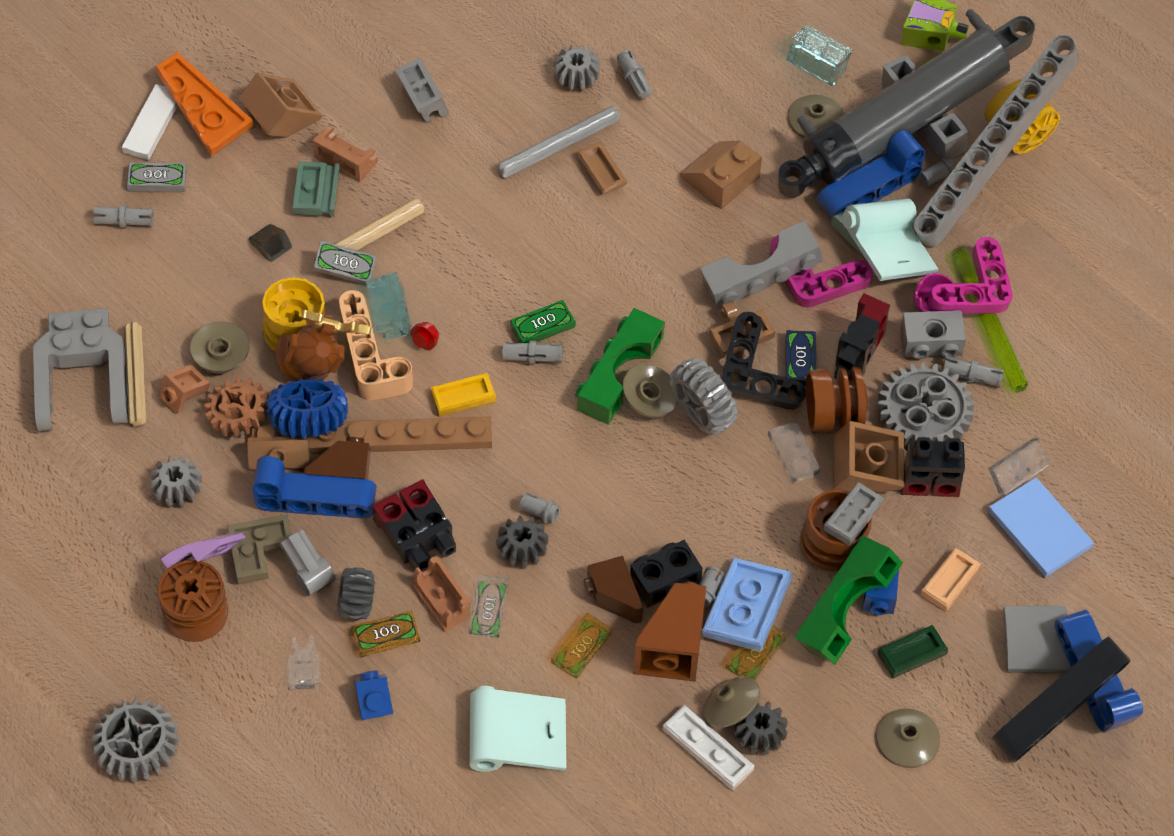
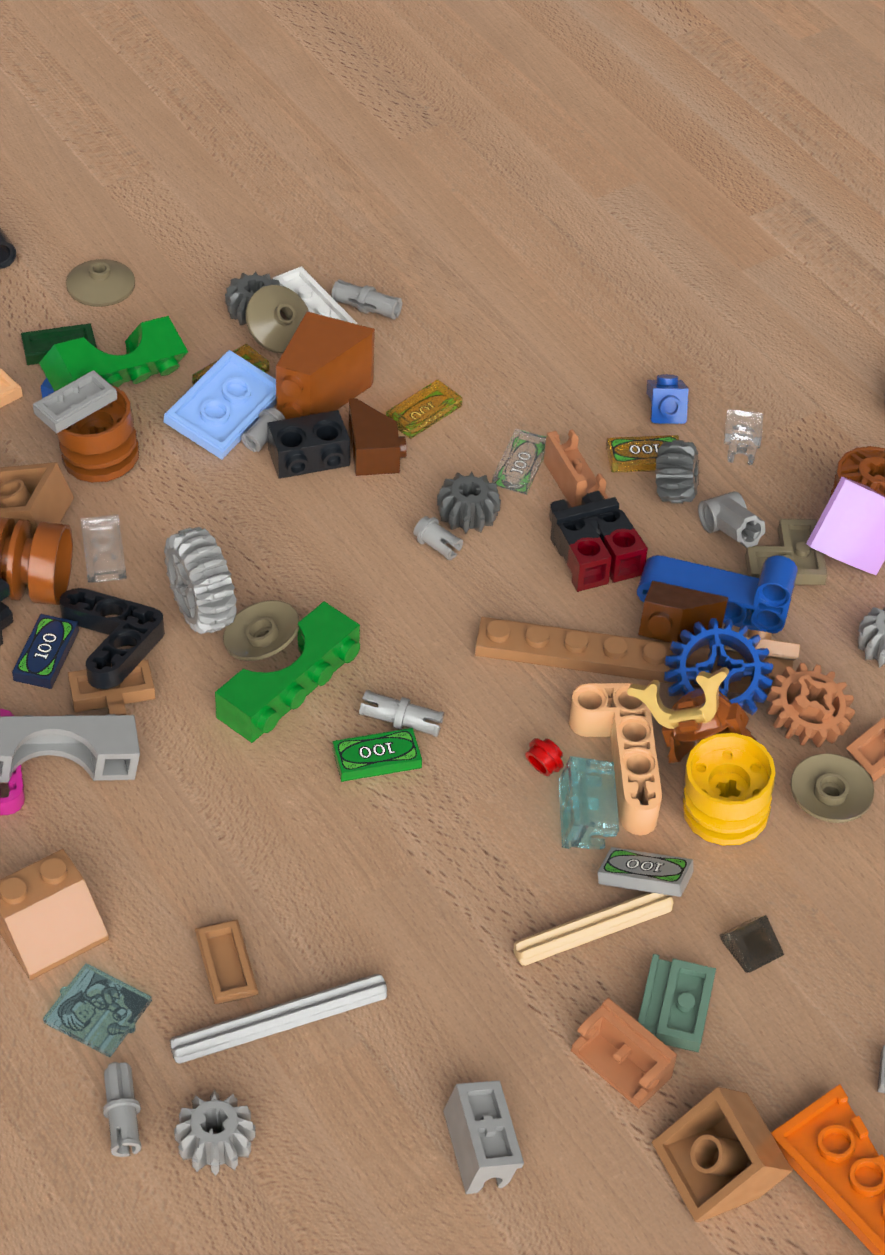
camera: 170 degrees left, 10 degrees down
(463, 394) = (505, 687): yellow tile -> none
(515, 730) = (517, 338): light aqua door -> none
(662, 755) = (366, 299): none -> light grey pin
(670, 132) = (97, 1010): none -> clear light blue piece

